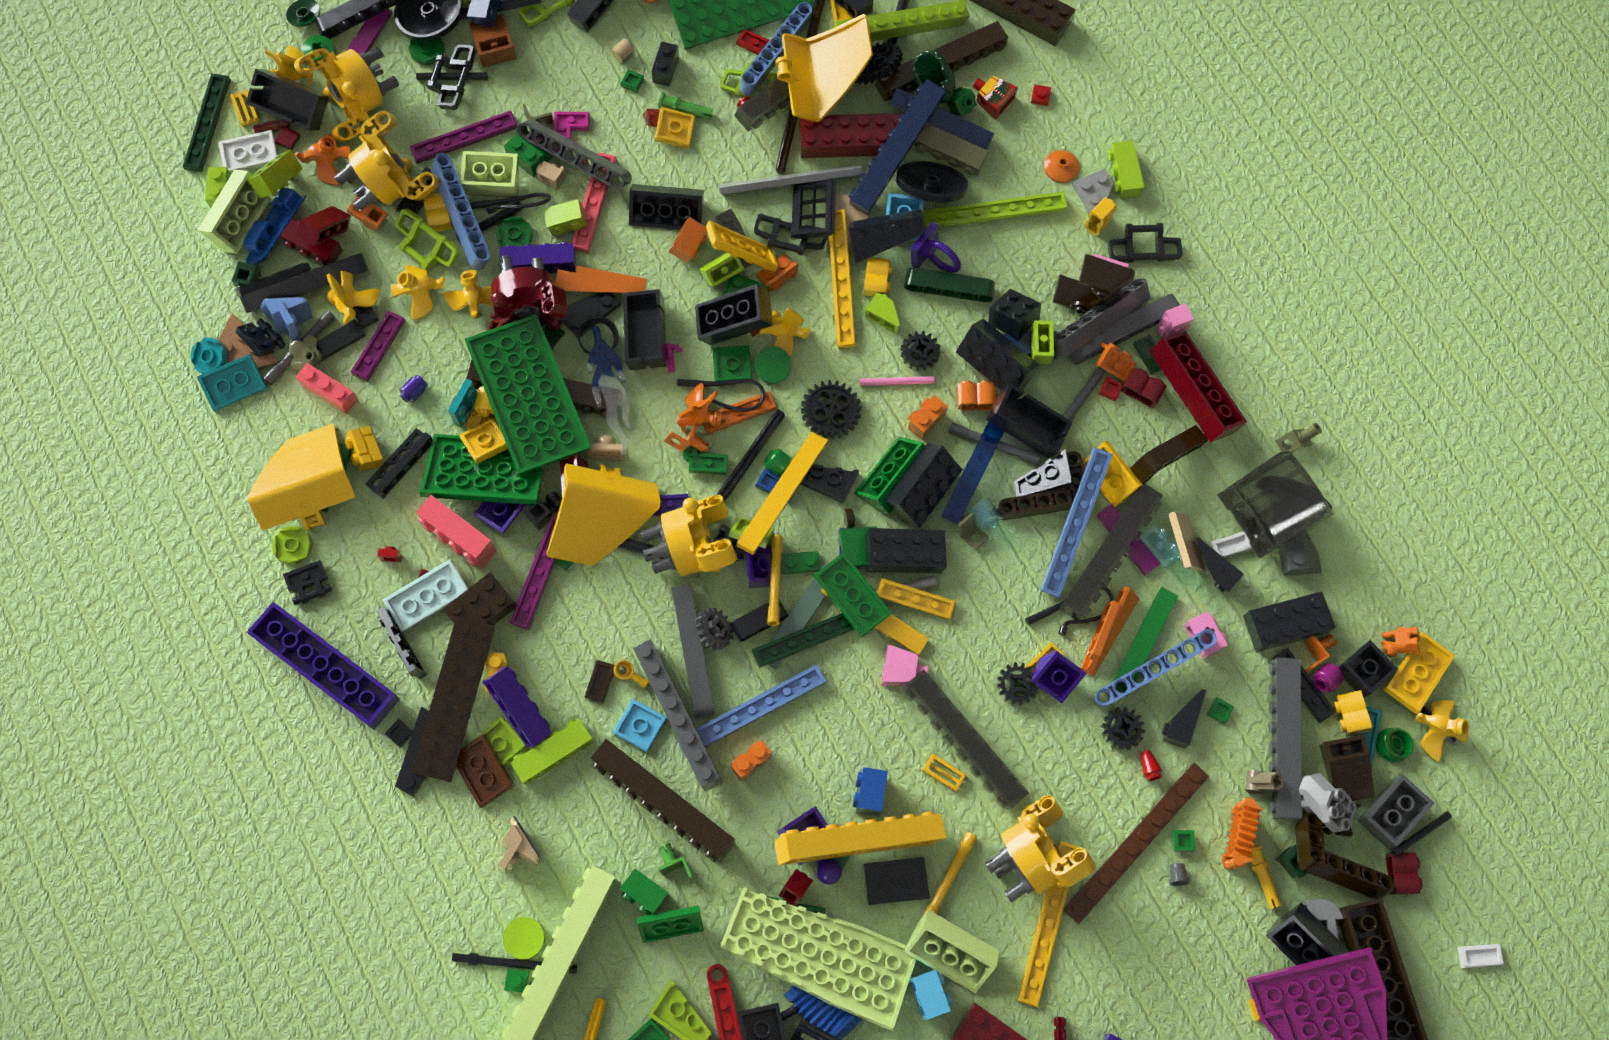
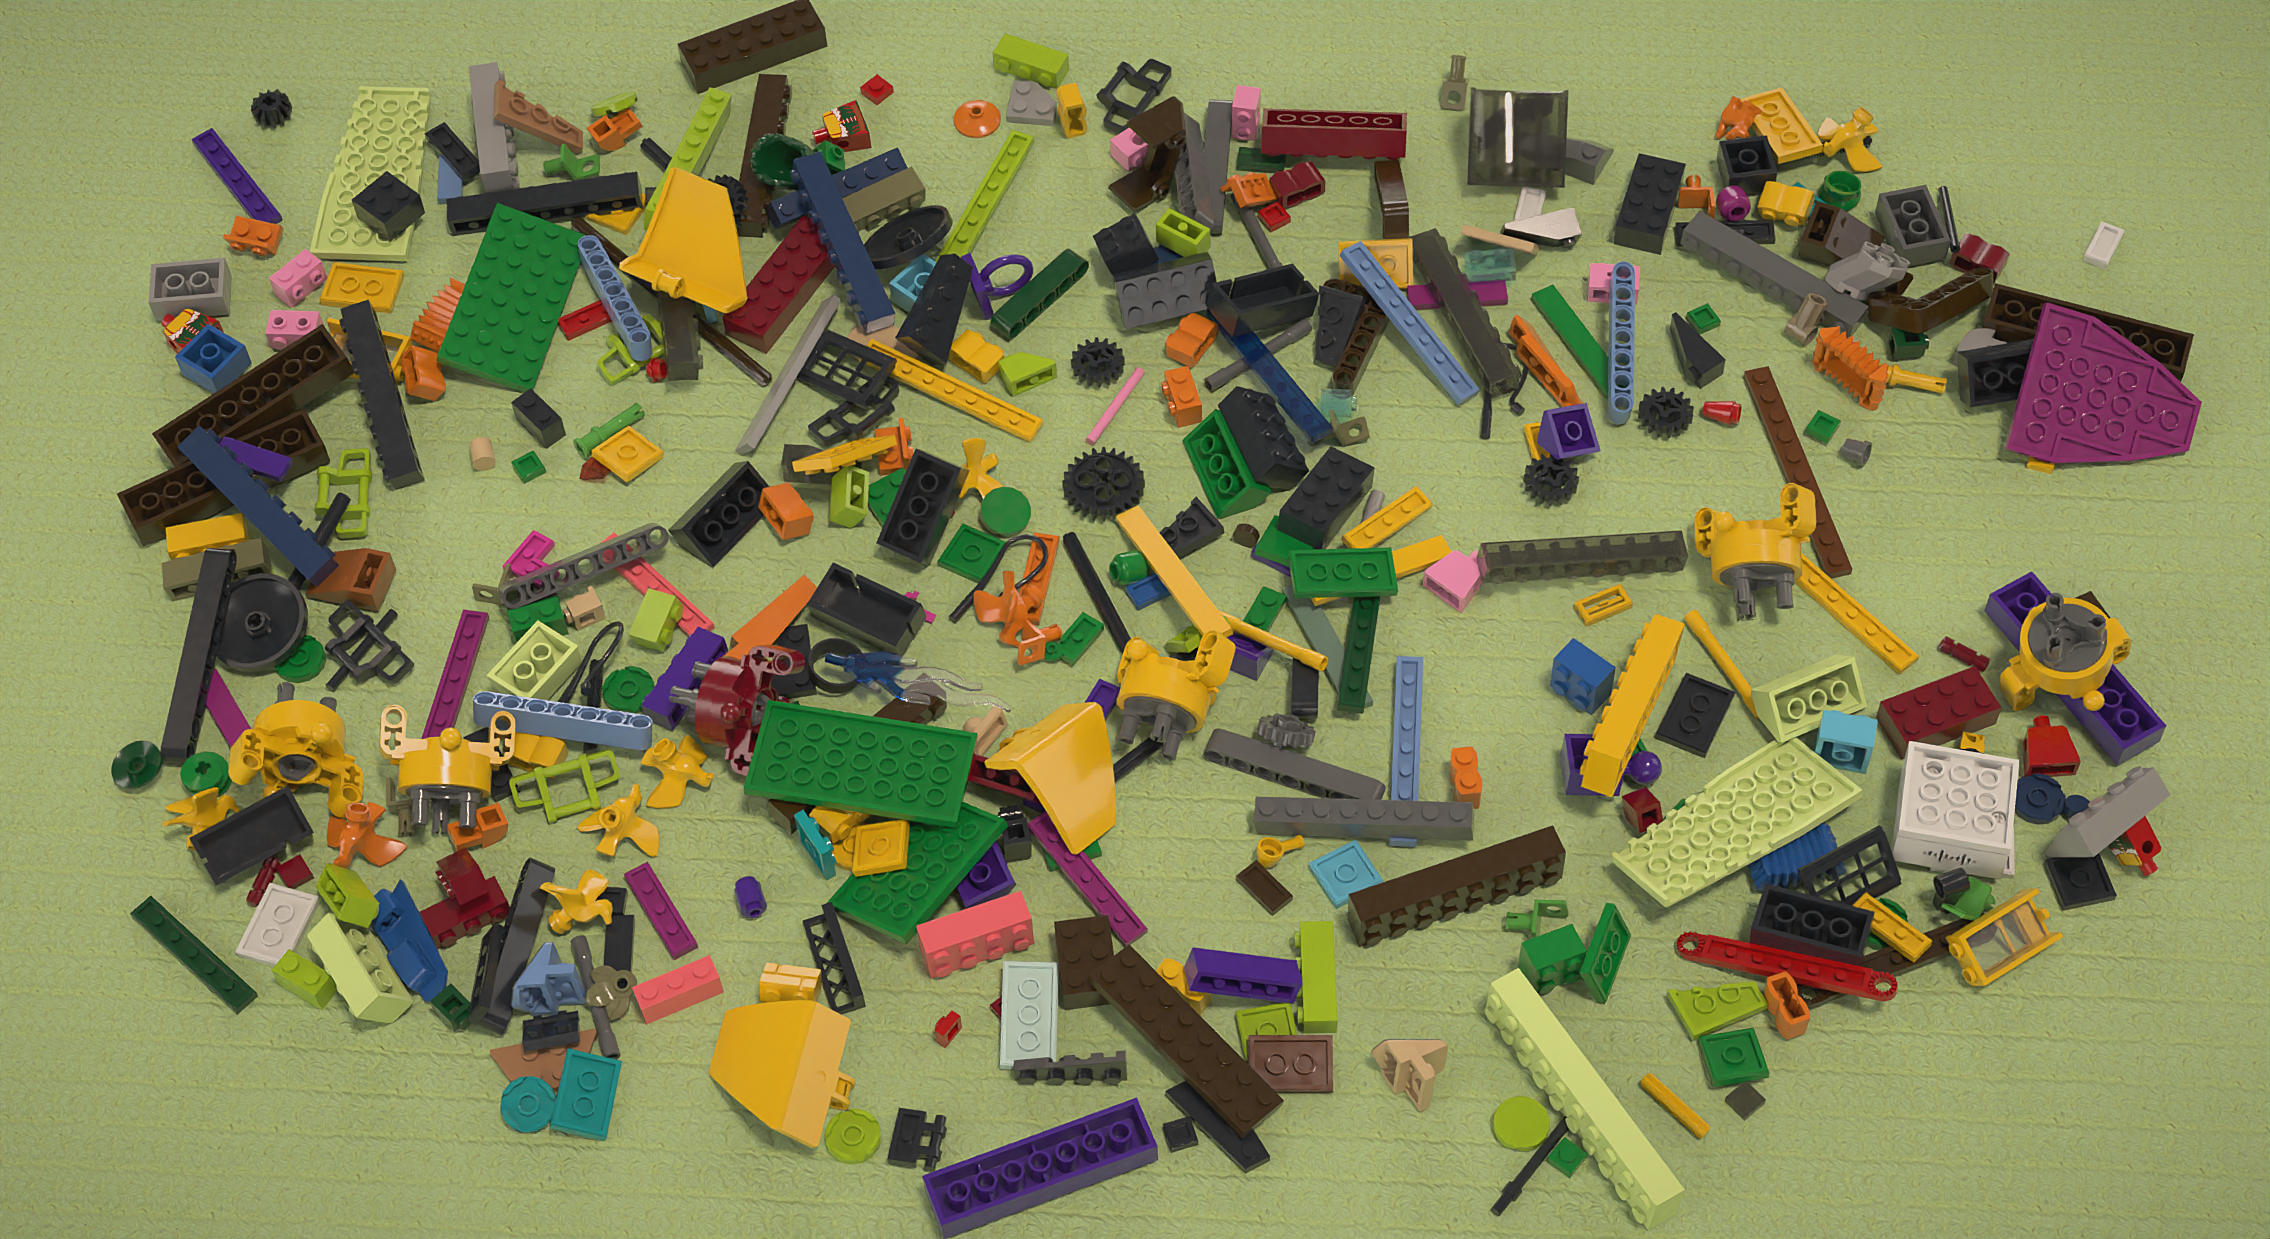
camera: 50 degrees left, 15 degrees down
(240, 96) = (212, 891): yellow tile -> none

